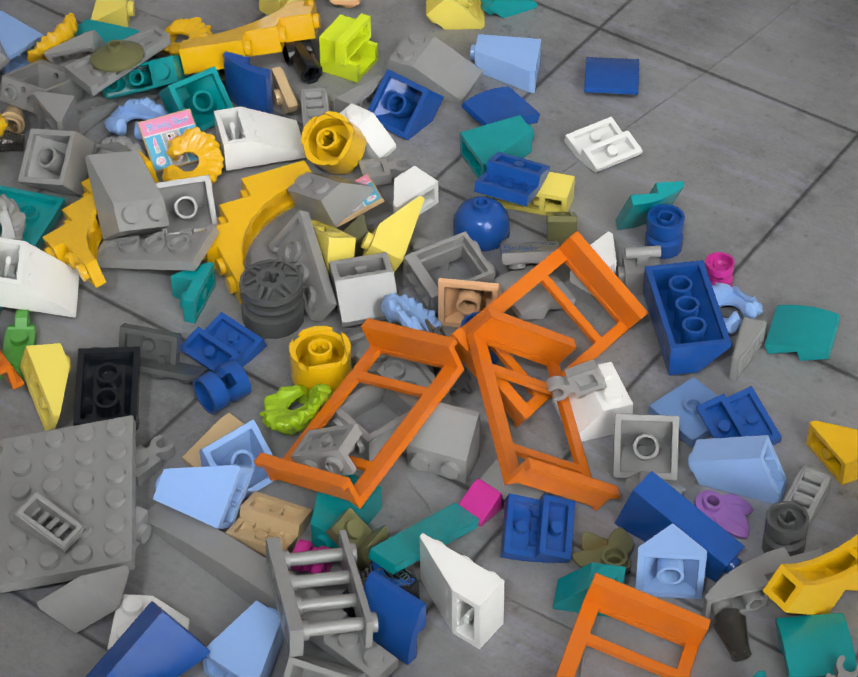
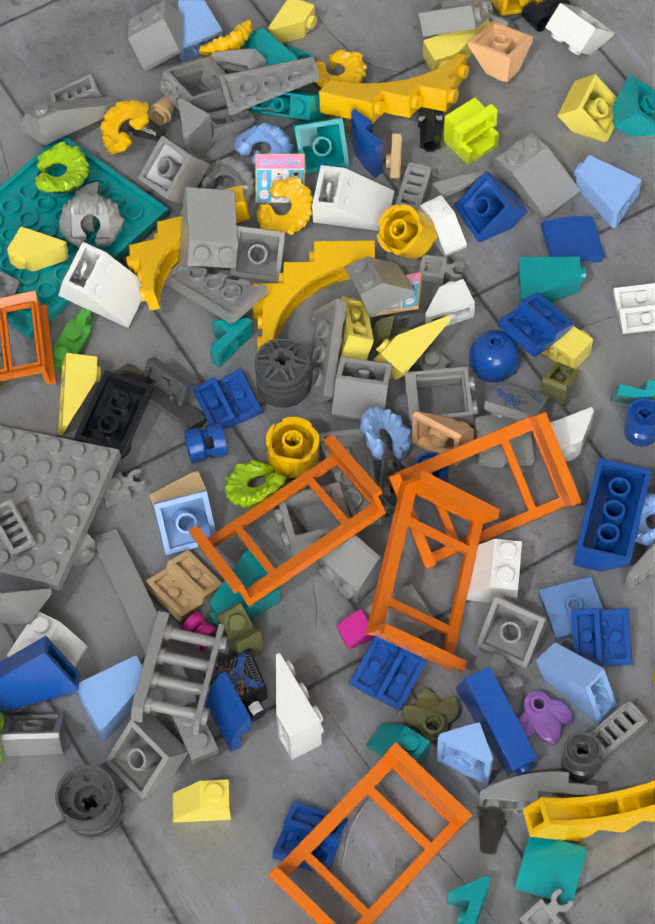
camera: 25 degrees right, 15 degrees up
(117, 56) = (265, 81): olive dish -> none
(205, 492) = (143, 541): light blue slope -> none
(329, 449) = (244, 544): light grey bracket -> none
(404, 547) = (292, 647): teal tile -> none
(579, 379) = (483, 553): light grey plate -> none
(633, 266) = (598, 448): light grey brick -> none

